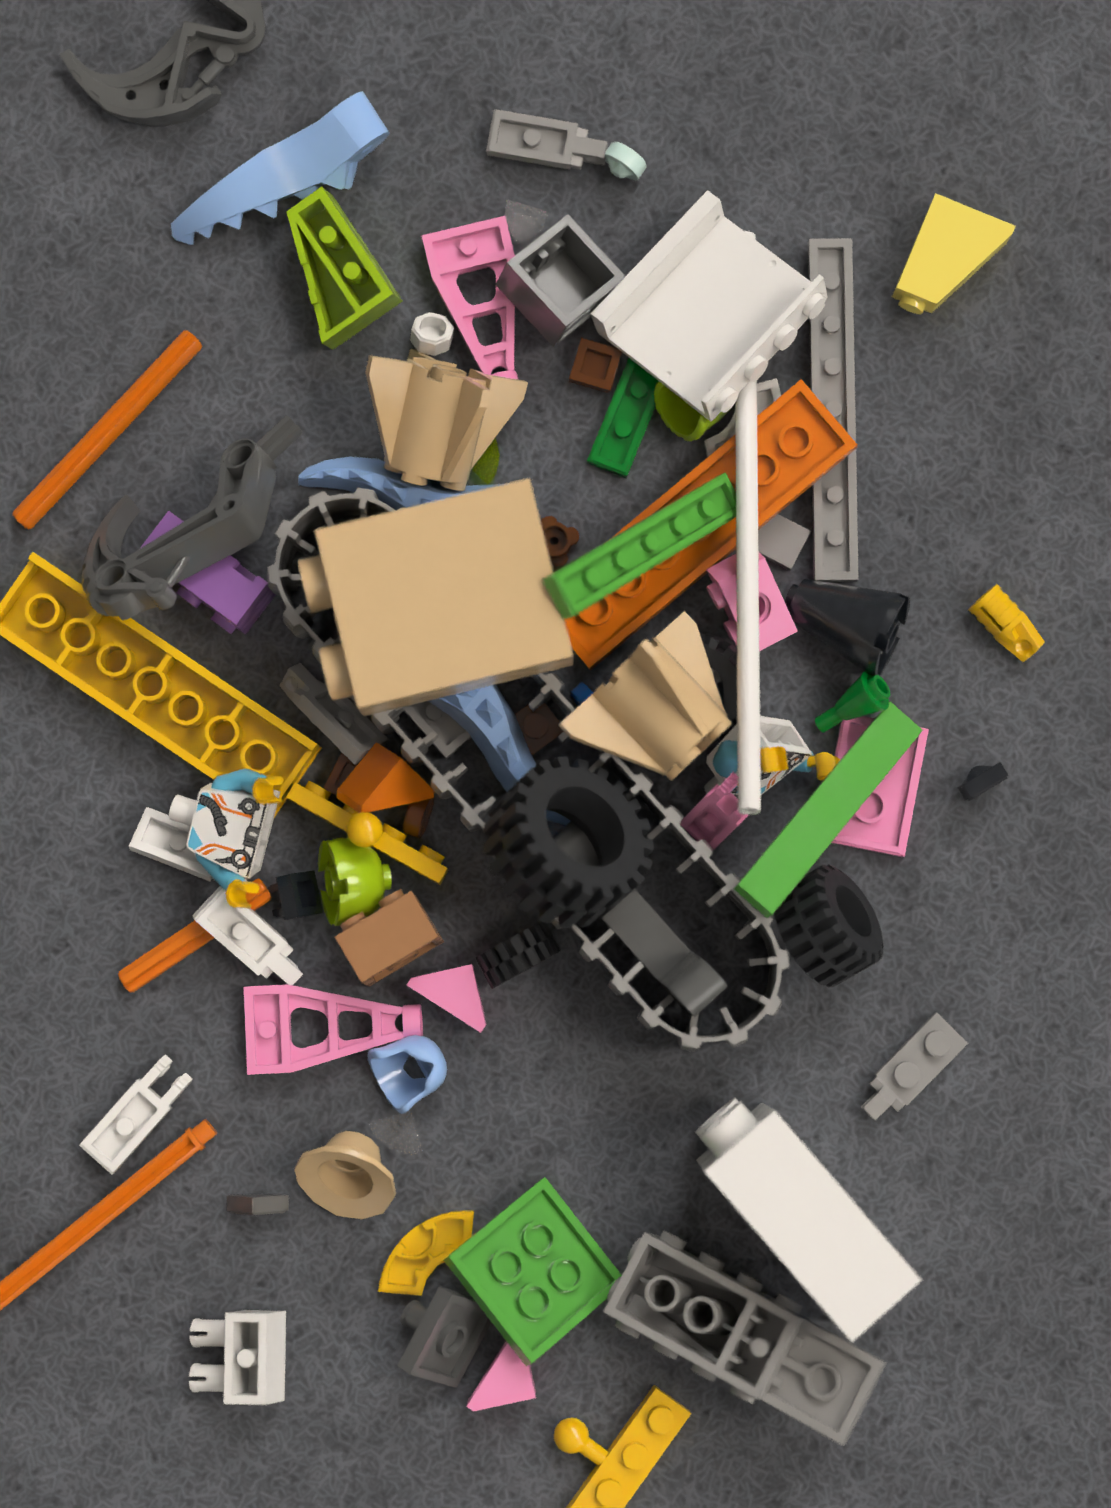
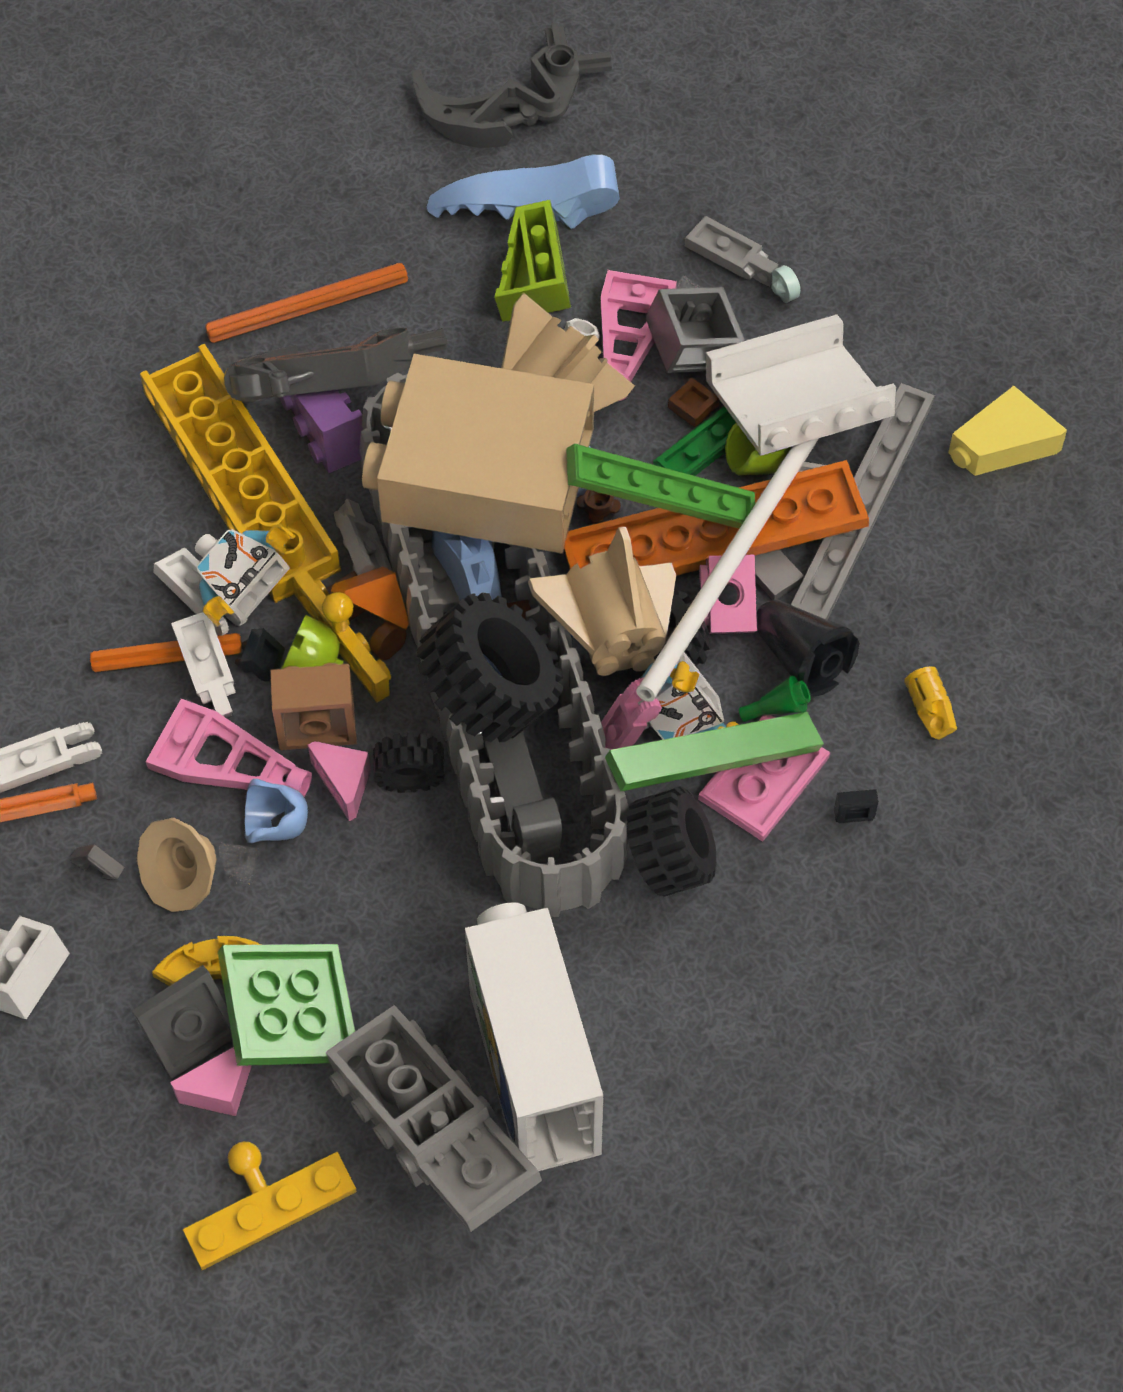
camera: 25 degrees right, 25 degrees down
(913, 1066) = (690, 1000): light grey hinge -> none

